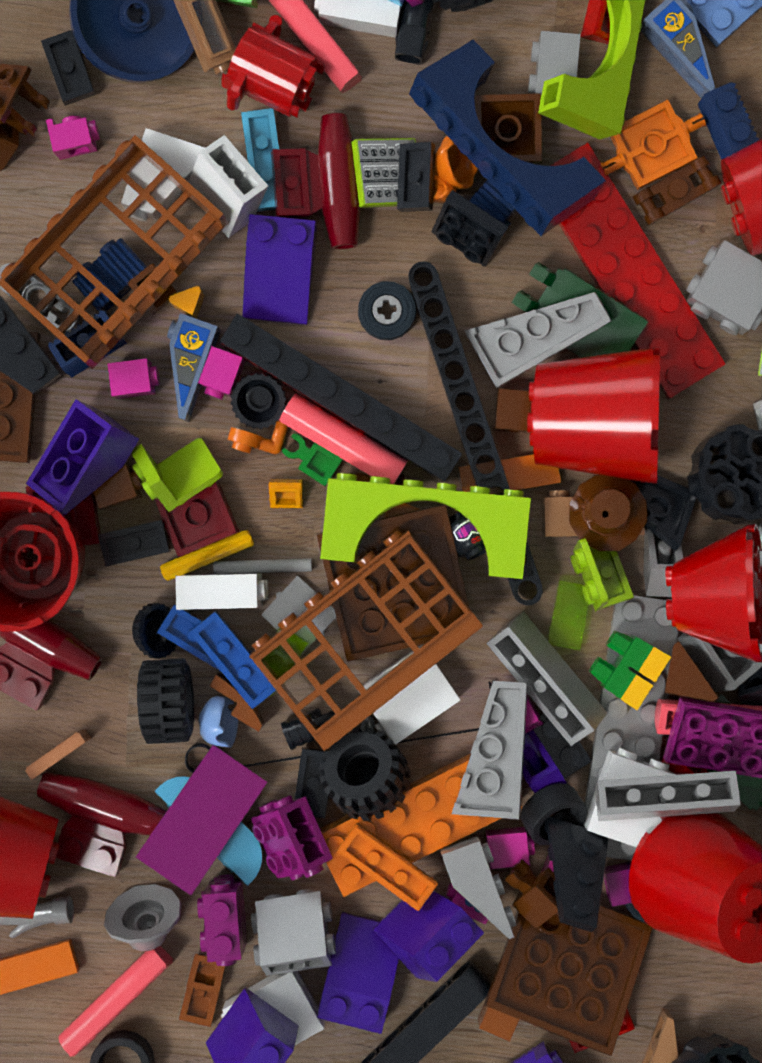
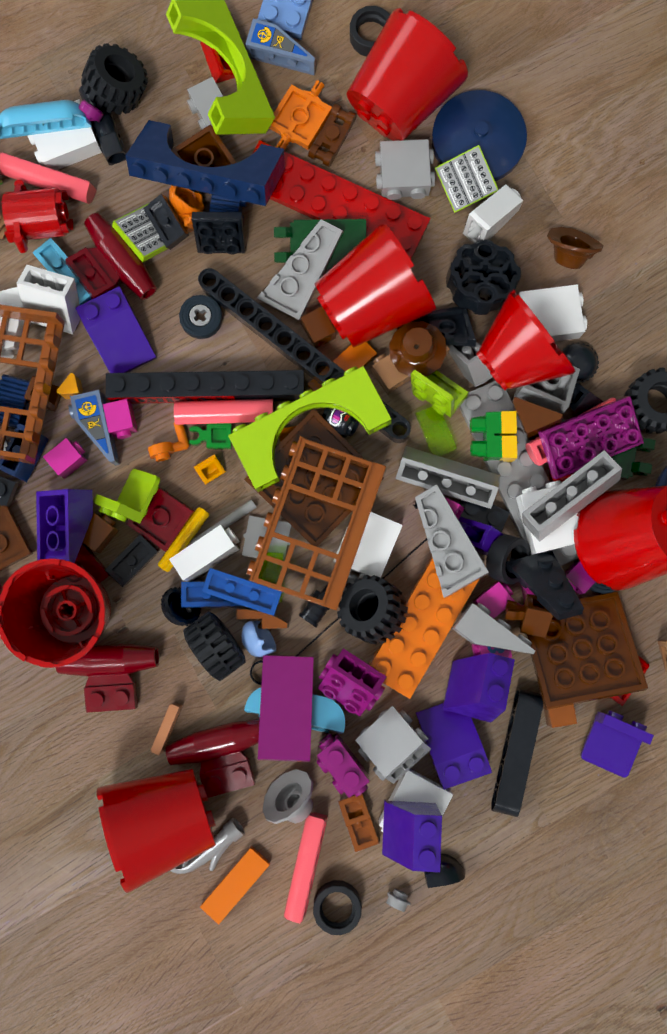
camera: 35 degrees left, 5 degrees down
(258, 400) = (154, 421): black hat -> none
(309, 781) = (341, 639): black plate -> none
(387, 867) = (425, 659): orange tile -> none
(727, 120) = (333, 72): dark blue brick -> none

